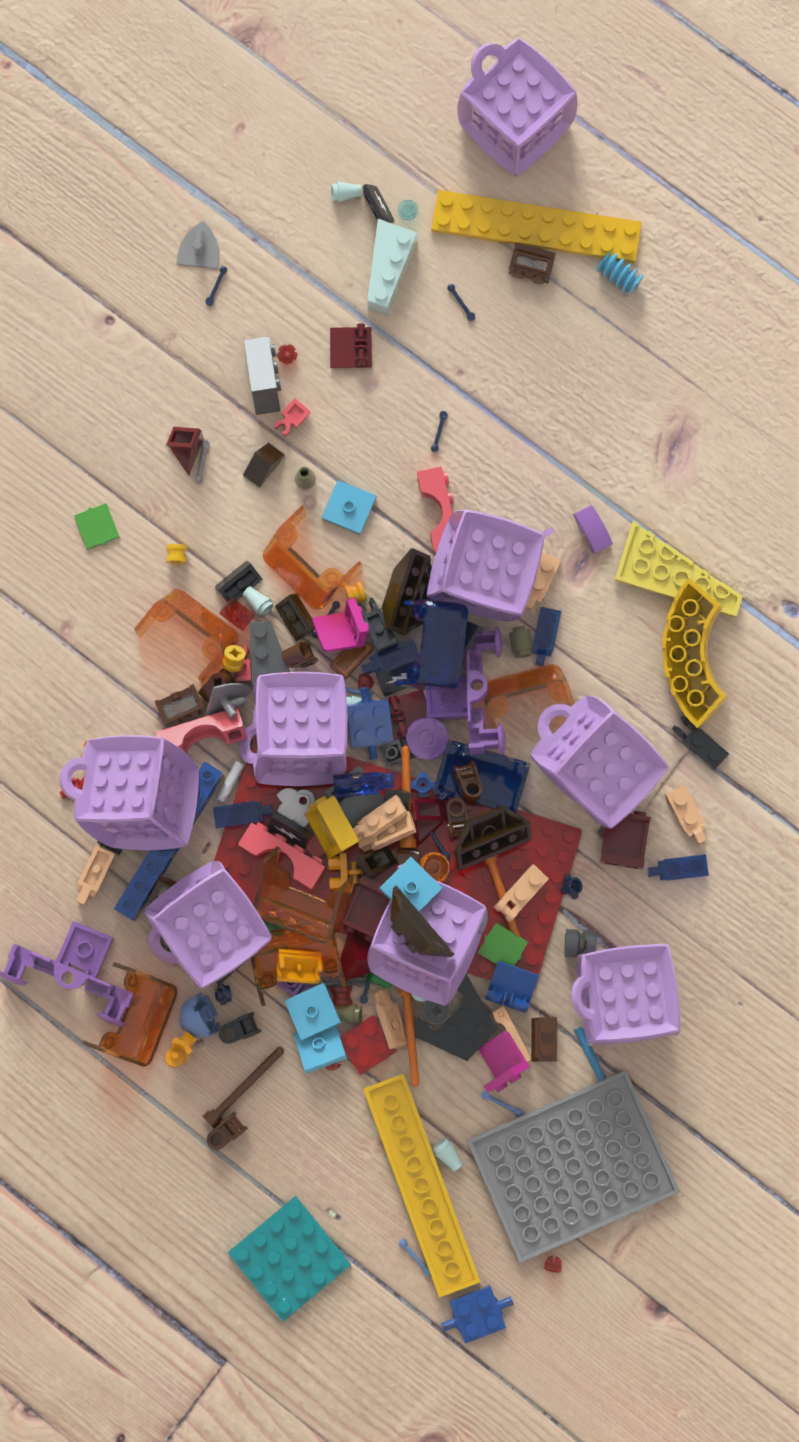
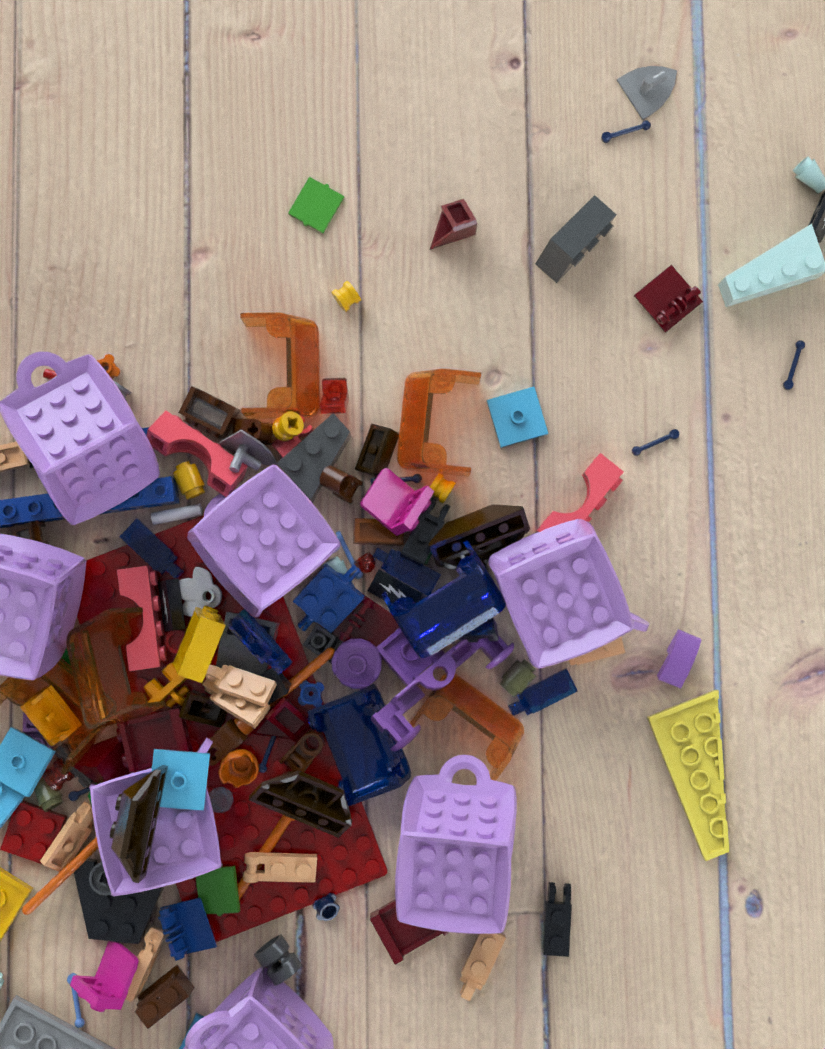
camera: 50 degrees right, 5 degrees up
(205, 445) = (469, 240): light grey hinge -> none
(214, 754) = (189, 480): none -> yellow brick
(238, 581) = (367, 373): black slope -> none
(259, 603) = (362, 407): light aqua cone -> none
(263, 464) = (494, 307): dark brown slope -> none
(287, 359) = (613, 252): clear red plate -> none
(293, 415) = (562, 297): coral plate -> none
(305, 482) = (510, 360): olive cone -> none
(468, 778) = (347, 732): reddish brown piece -> none
(680, 868) = (423, 996): clear blue hinge -> none
(686, 653) = (630, 843): yellow brick -> none

